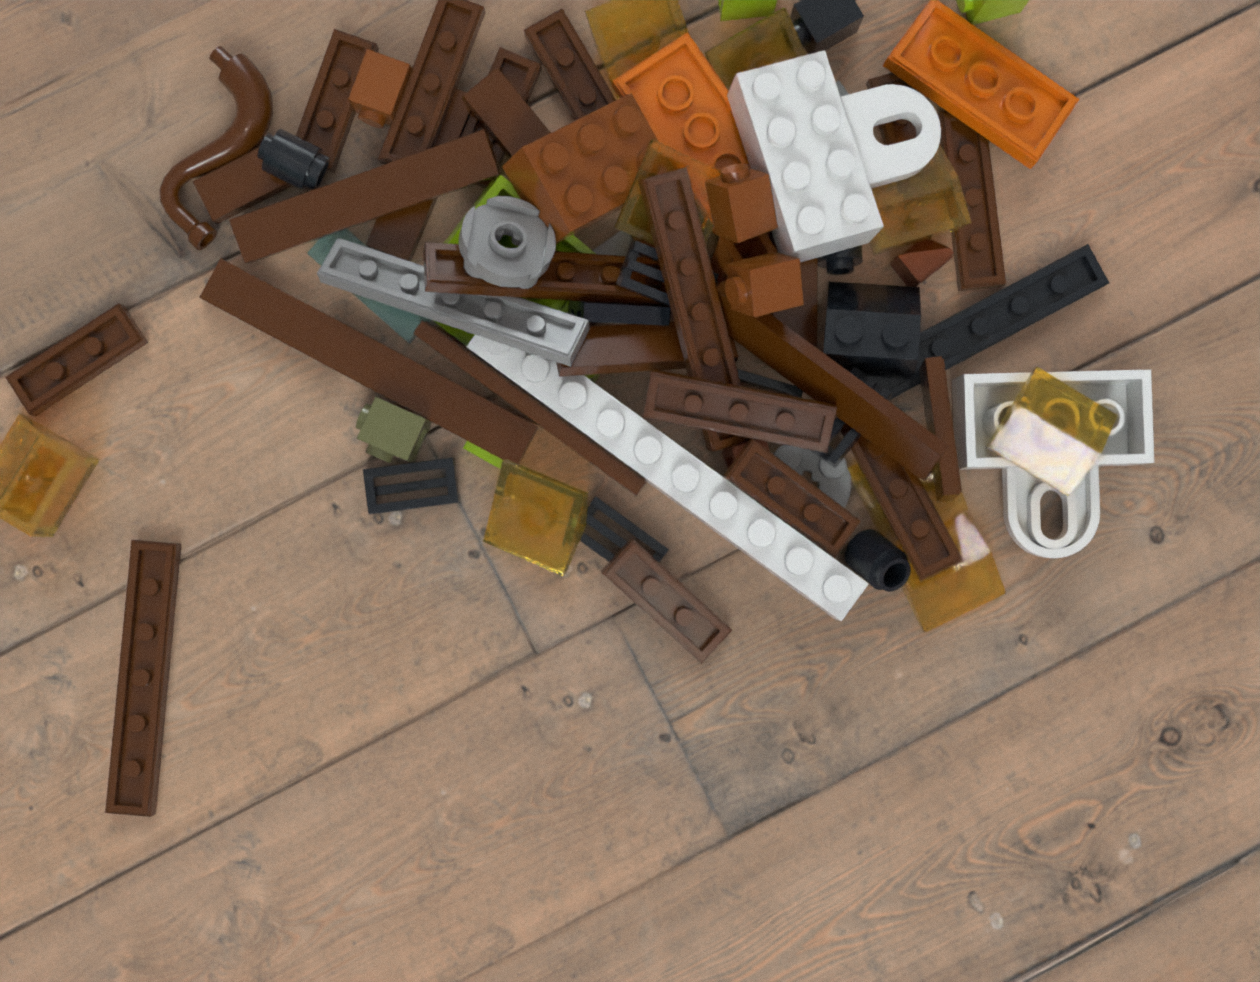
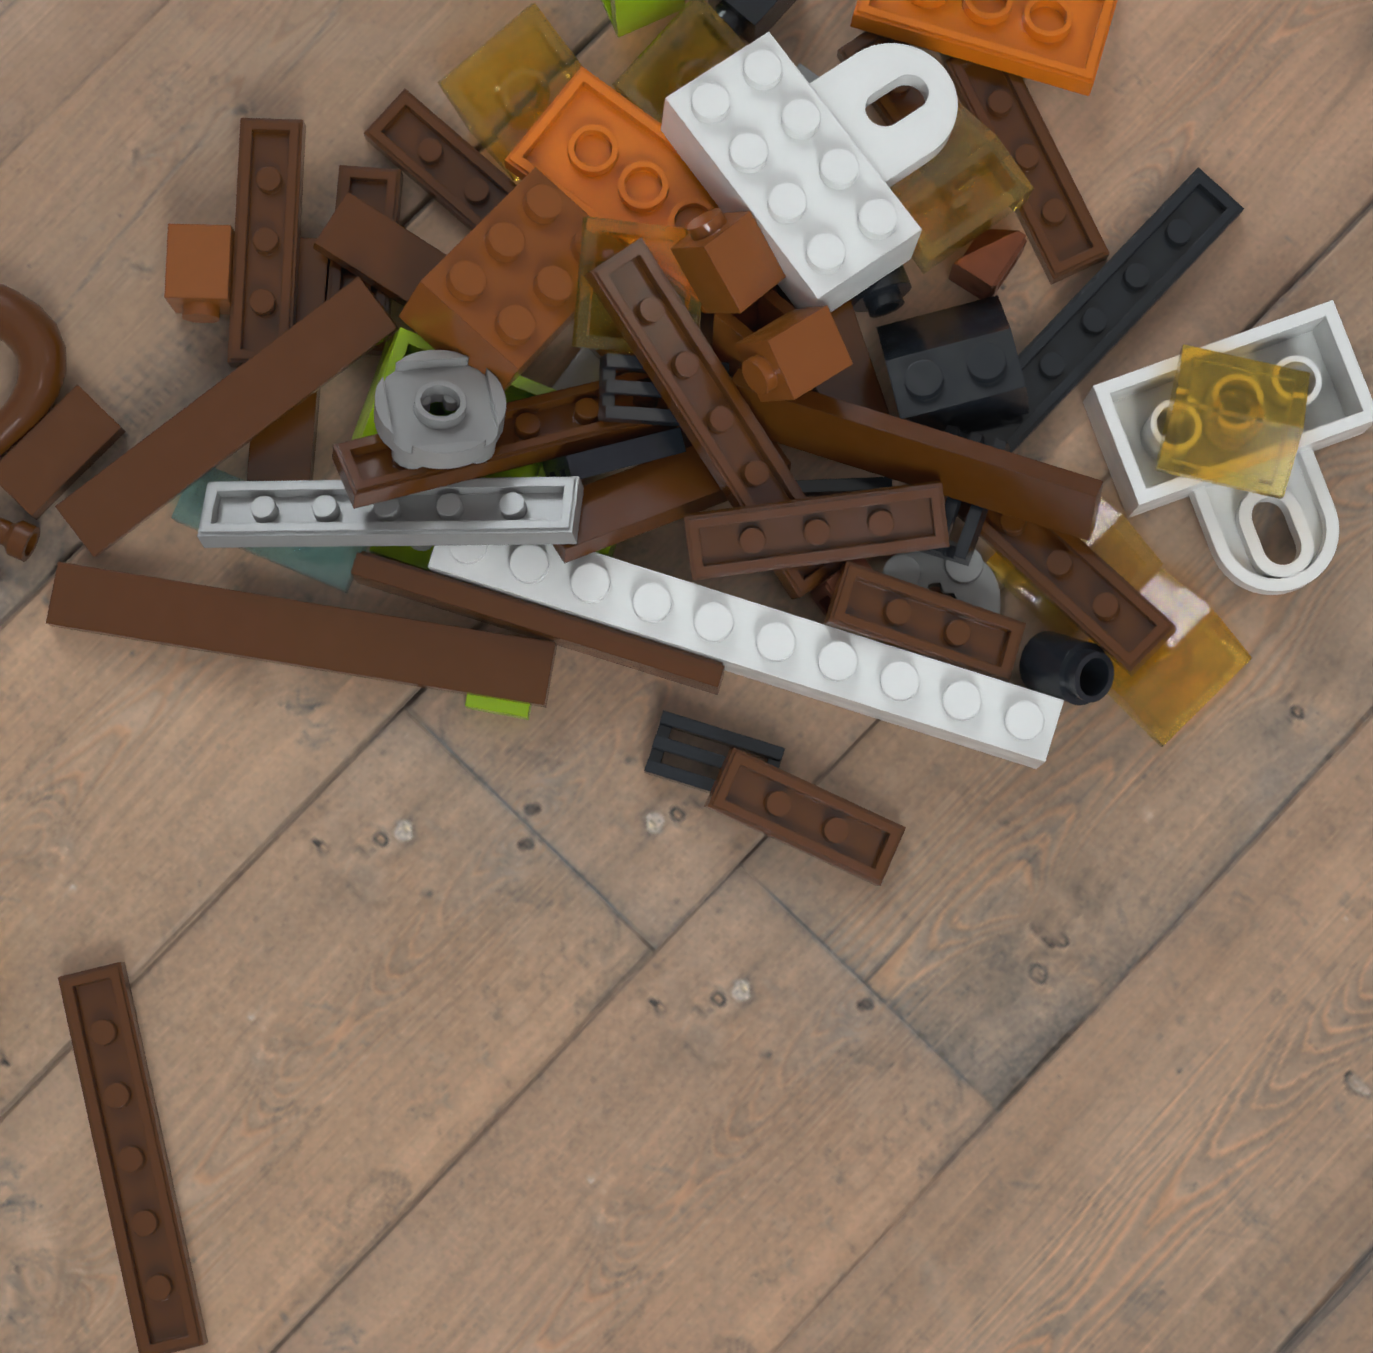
camera: 20 degrees left, 5 degrees down
(293, 160) = (116, 399): black brick -> none
(328, 111) = (138, 314): reddish brown tile -> none
(373, 491) = (362, 804): black tile -> none
(391, 431) = (362, 713): olive brick -> none
(536, 517) = (594, 763): clear yellow slope -> none
(940, 423) = (1084, 458): reddish brown tile -> none

